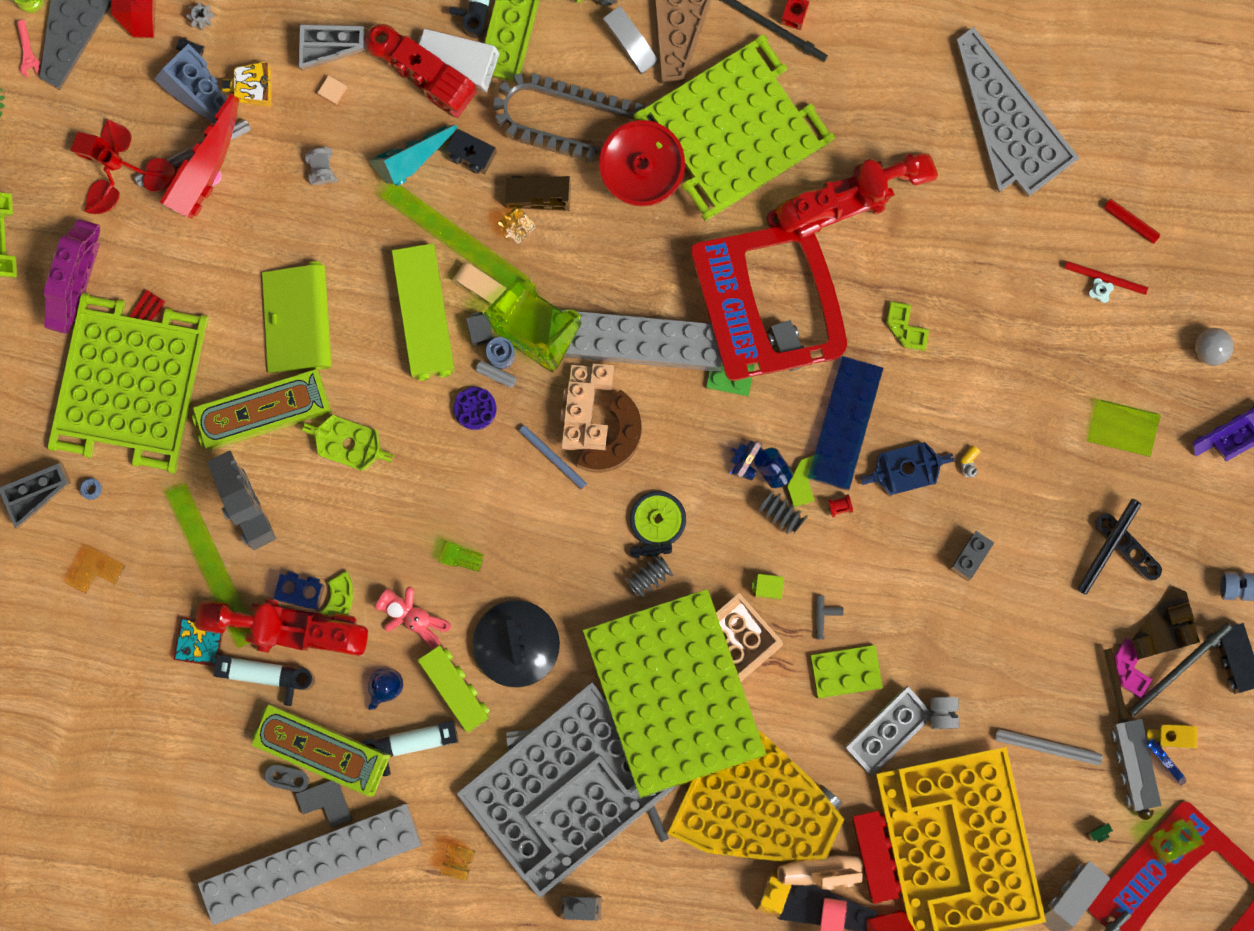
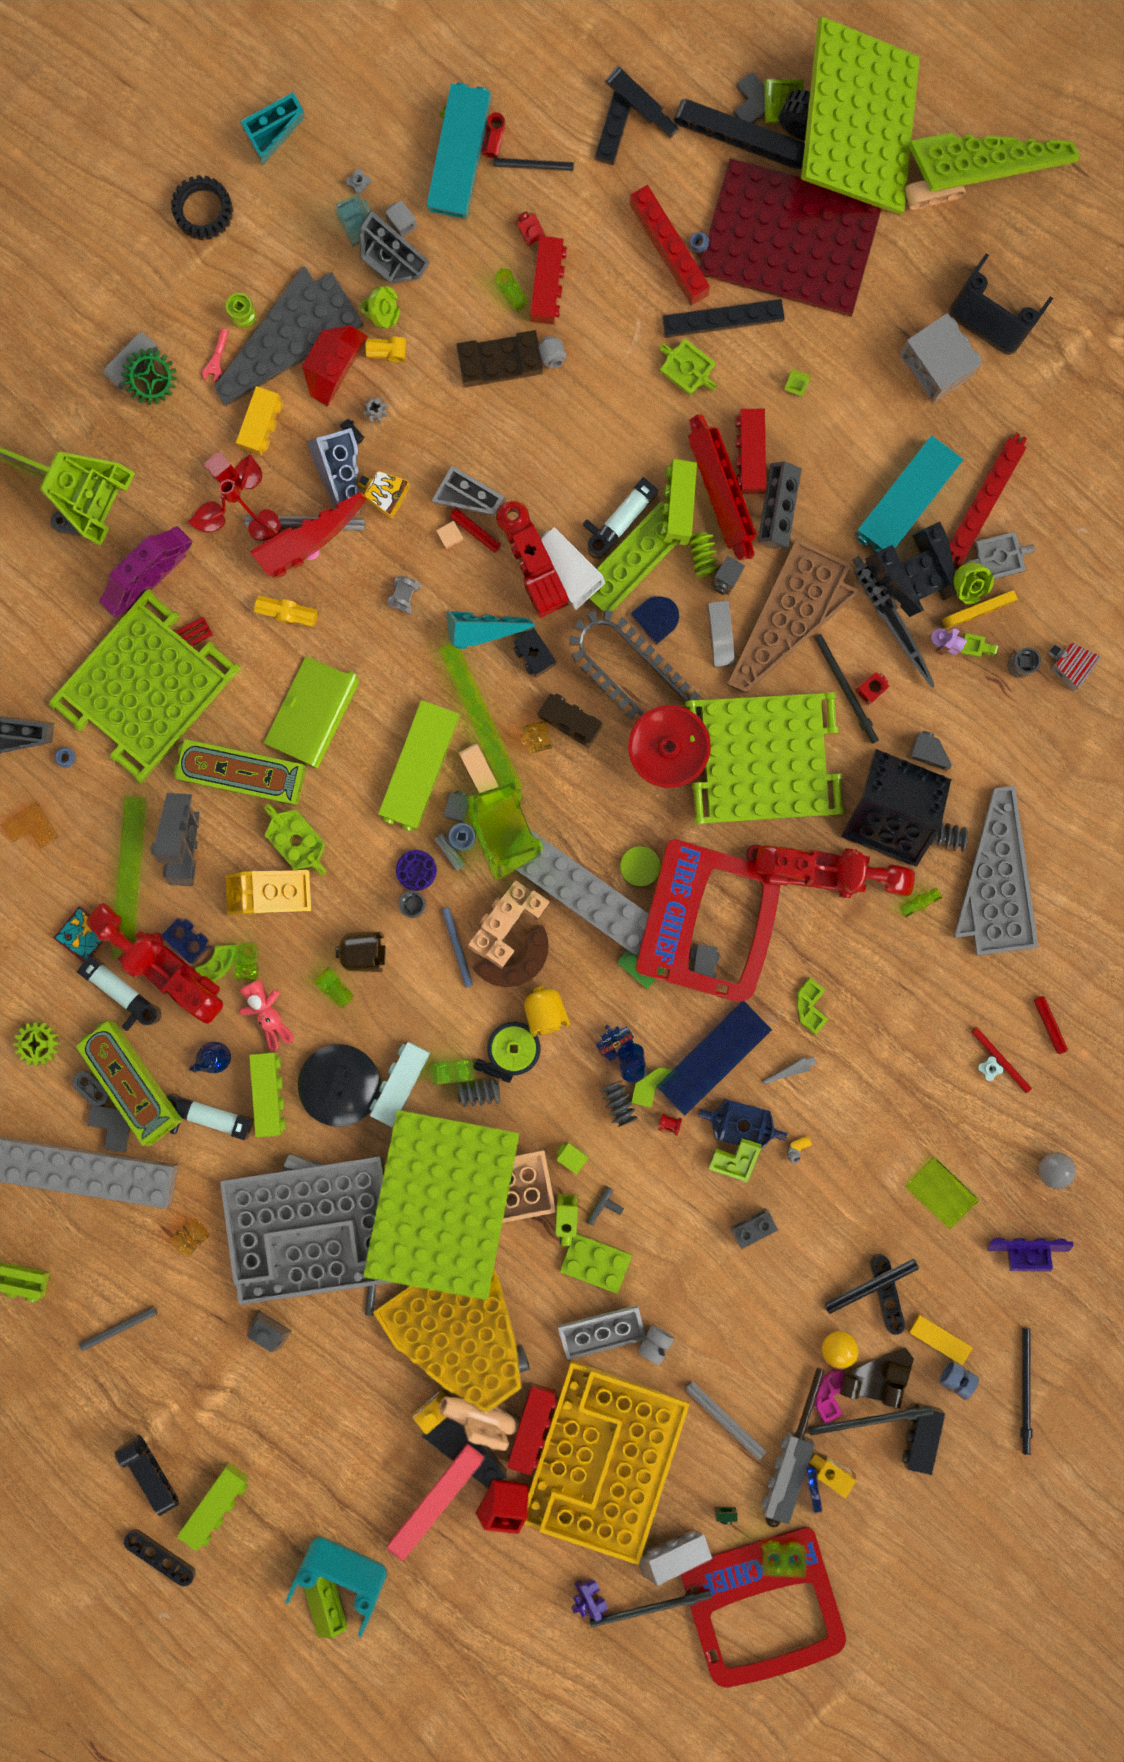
camera: 25 degrees right, 5 degrees up
(100, 85) = (259, 421): none -> yellow brick
(221, 241) = (285, 611): none -> yellow piece
(221, 761) = (36, 1036): none -> lime gear
(348, 503) = (267, 892): none -> yellow bracket
(353, 73) = (475, 530): none -> red axle
(367, 580) = (247, 963): none -> clear neon green piece
(467, 508) = (362, 952): none -> dark brown cylinder
(490, 439) = (412, 904): none -> dark grey wheel
(564, 58) = (657, 617): none -> clear blue tile
(571, 609) = (400, 1084): none -> light aqua brick
(614, 570) = (453, 1071): none -> clear neon green brick
(667, 467) = (545, 1011): none -> yellow cylinder
(678, 289) = (640, 866): none -> lime tile
(793, 636) = (566, 1218): none -> lime torso
(879, 39) = (929, 751): none -> dark grey slope
(881, 106) = (898, 809): none -> black bracket
(926, 505) = (738, 1165): none -> lime plate
(928, 386) = (799, 1066): none -> light grey piece
(937, 105) = (952, 836): none -> dark grey piece
(950, 178) = (920, 902): none -> clear neon green pin
(1114, 620) = (840, 1349): none -> yellow piece
(1200, 560) = (940, 1339): none -> yellow tile

